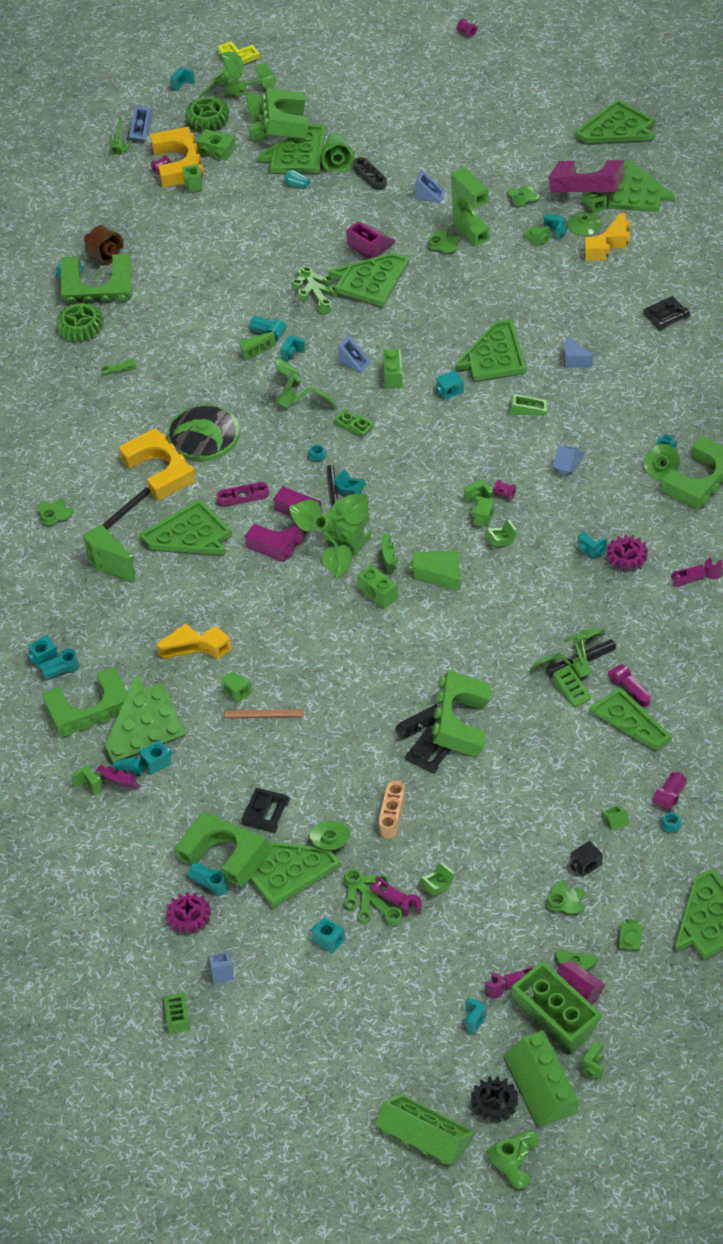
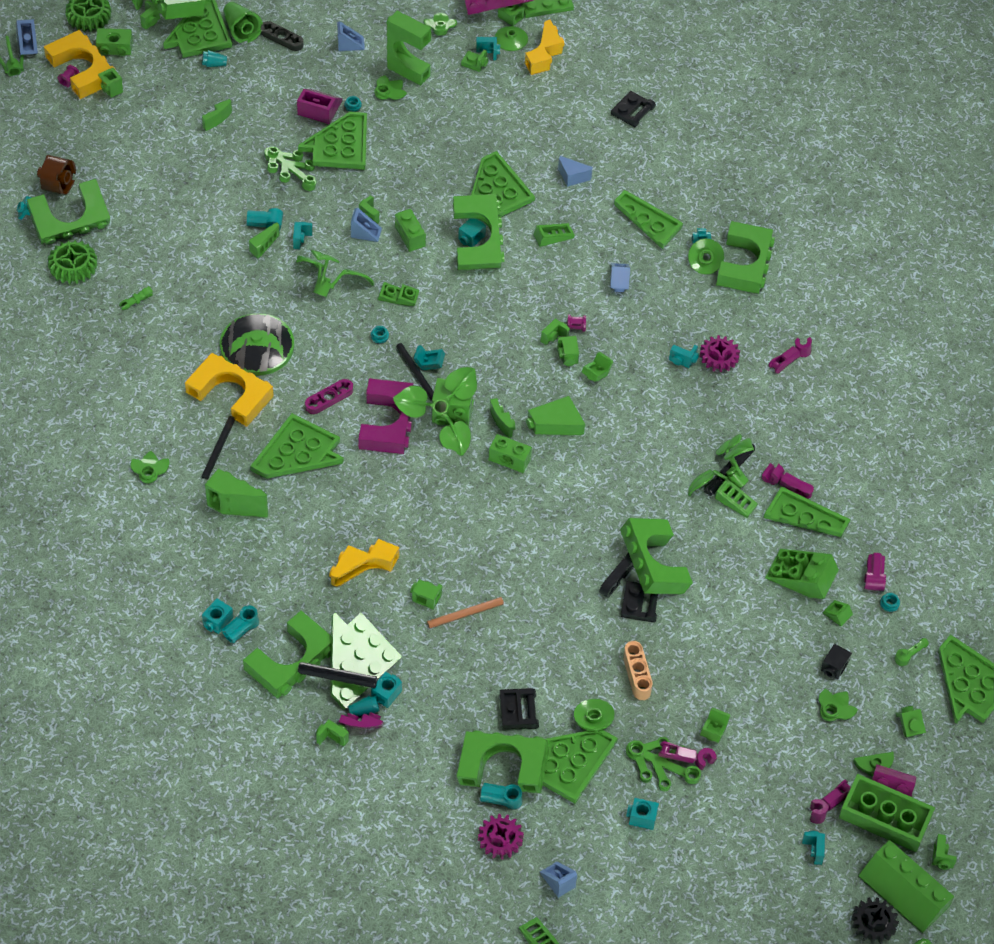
camera: 30 degrees left, 5 degrees up
(114, 729) = (337, 675): none -> black axle
(277, 227) = (214, 118): none -> bright green slope
(363, 340) = (367, 207): none -> bright green bracket
(402, 247) = (352, 104): none -> teal plate
(454, 407) = (485, 209): none -> bright green arch
(600, 770) = (804, 572): none -> bright green slope
(626, 415) = (649, 219): none -> bright green wing
(656, 874) = (903, 655): none -> bright green piece

